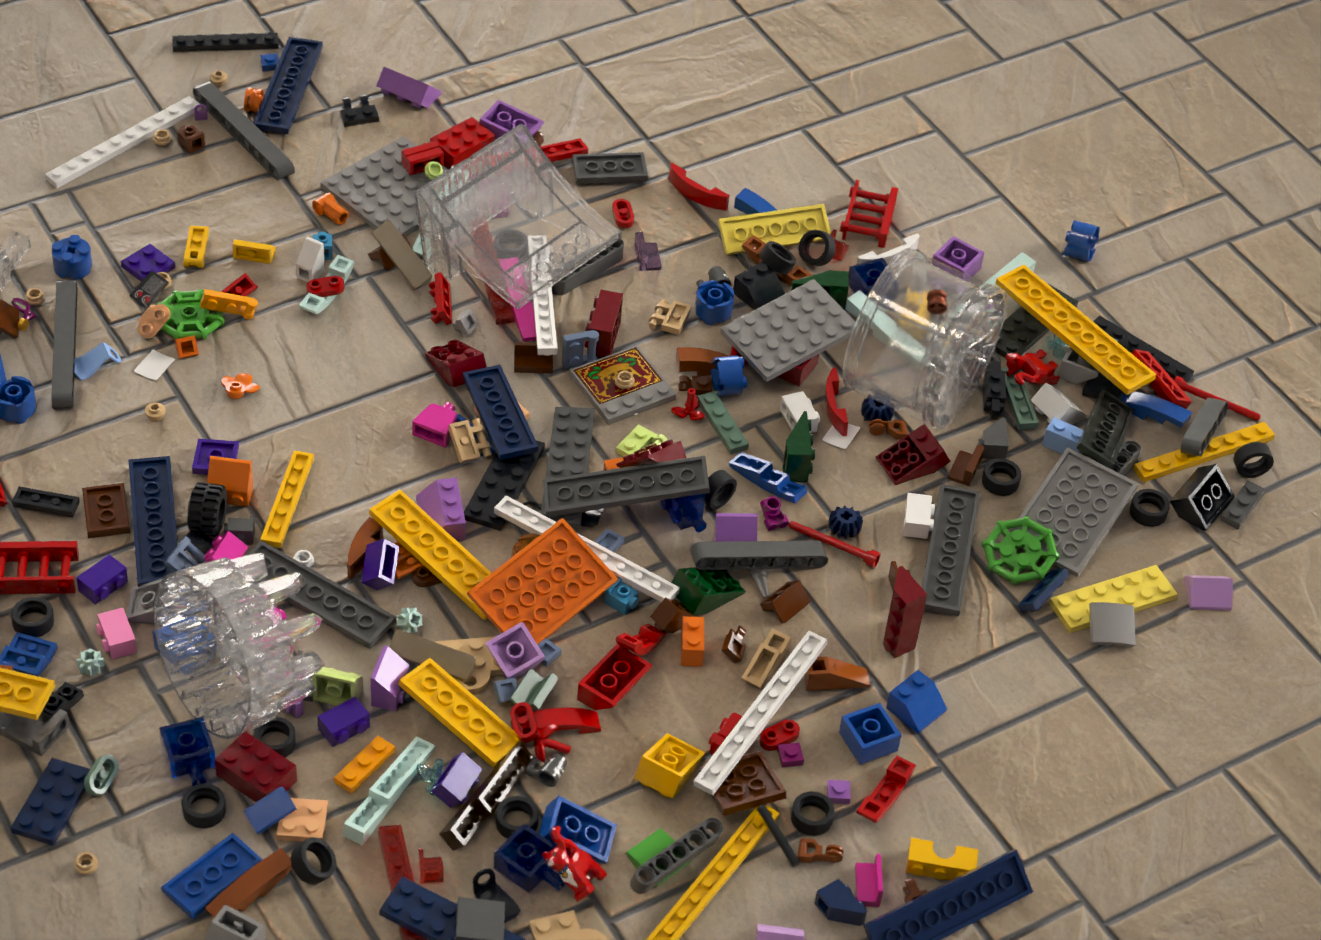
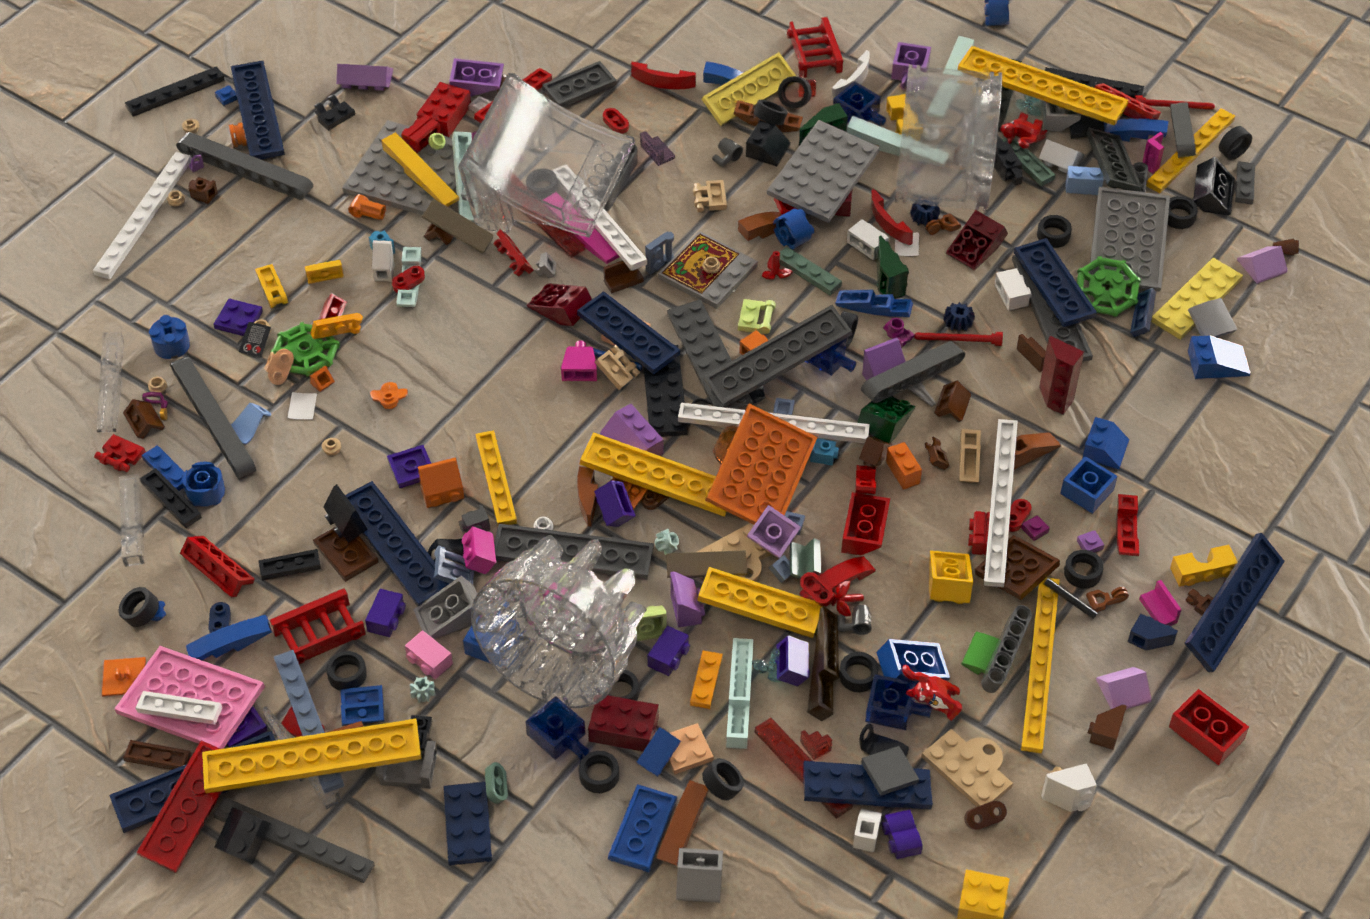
camera: 20 degrees left, 5 degrees up
(86, 858) = (532, 859): tan plate -> none
(118, 475) = (343, 515): none -> black slope
(207, 509) = (440, 514): black tyre -> none
(398, 190) = (418, 170): none -> yellow slope
(606, 321) = (665, 218): dark red brick -> none
(654, 453) = (782, 320): dark red slope -> none
(701, 384) = (767, 246): reddish brown plate -> none
(714, 302) = (740, 170): blue brick -> none
(936, 301) = (964, 102): copper wheel -> none
(964, 525) = (1055, 282): none -> dark blue plate
(966, 465) = (1020, 231): reddish brown panel -> none
(995, 440) = (1032, 203): dark grey slope -> none
(1094, 665) = (1216, 358): none -> blue slope
(1156, 437) = (1153, 153): none -> dark pink panel
(1245, 584) = (1288, 246): none -> reddish brown cone

